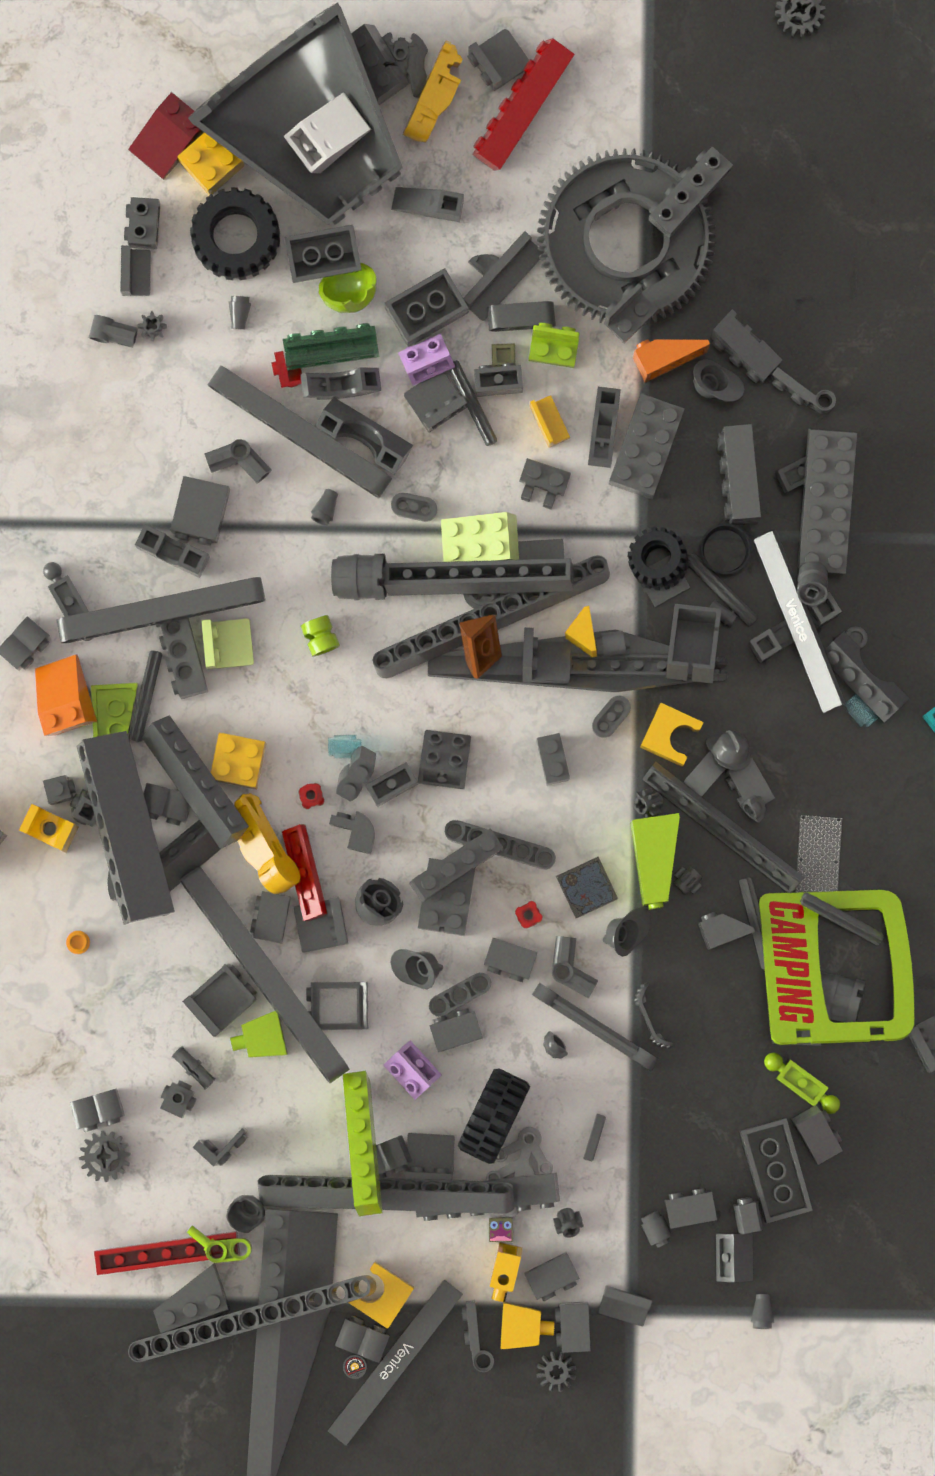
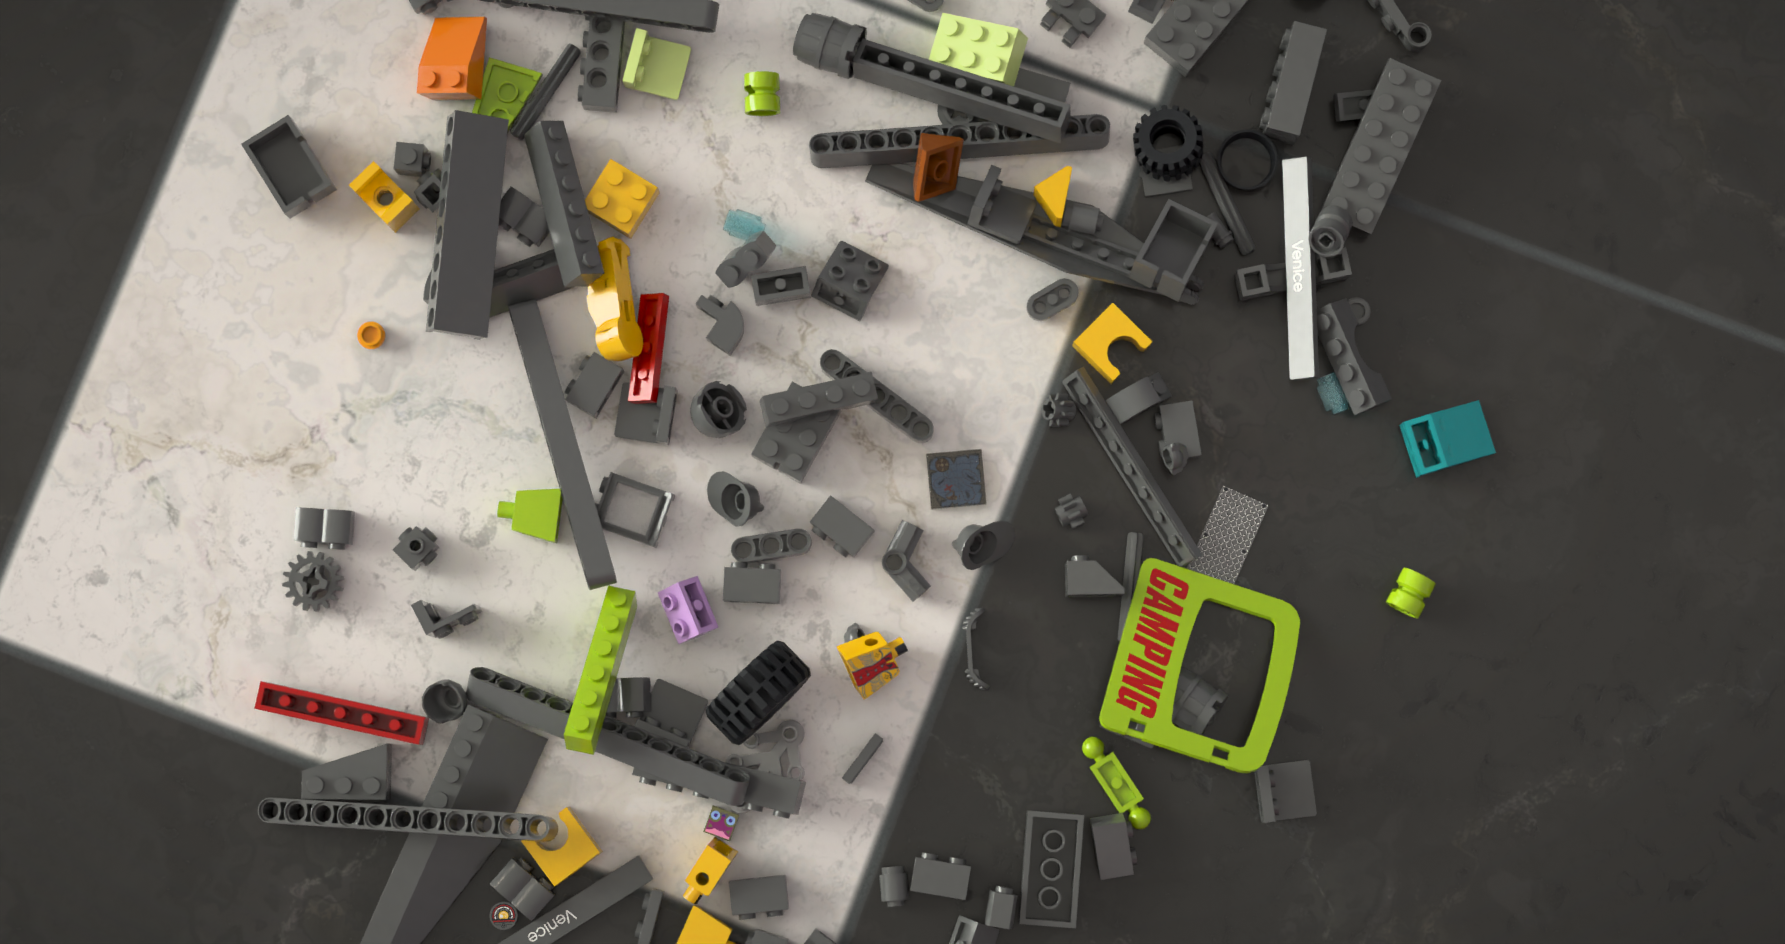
camera: 20 degrees right, 0 degrees up
(193, 1067) = (447, 519): dark grey pin -> none
(220, 999) = (505, 456): dark grey panel -> none
(227, 1245) = (410, 728): lime beam -> none
(318, 799) = (691, 274): red brick -> none
(530, 906) = (885, 477): red brick -> none
(553, 759) = (970, 323): dark grey brick -> none
(568, 1222) = (798, 842): dark grey gear -> none
(573, 1058) = (871, 661): none -> yellow torso
(595, 1027) = (911, 639): dark grey piece -> none
(654, 853) = (1045, 465): lime slope -> none
(729, 749) = (1170, 383): dark grey piece -> none
(841, 918) = (1227, 616): dark grey axle -> none

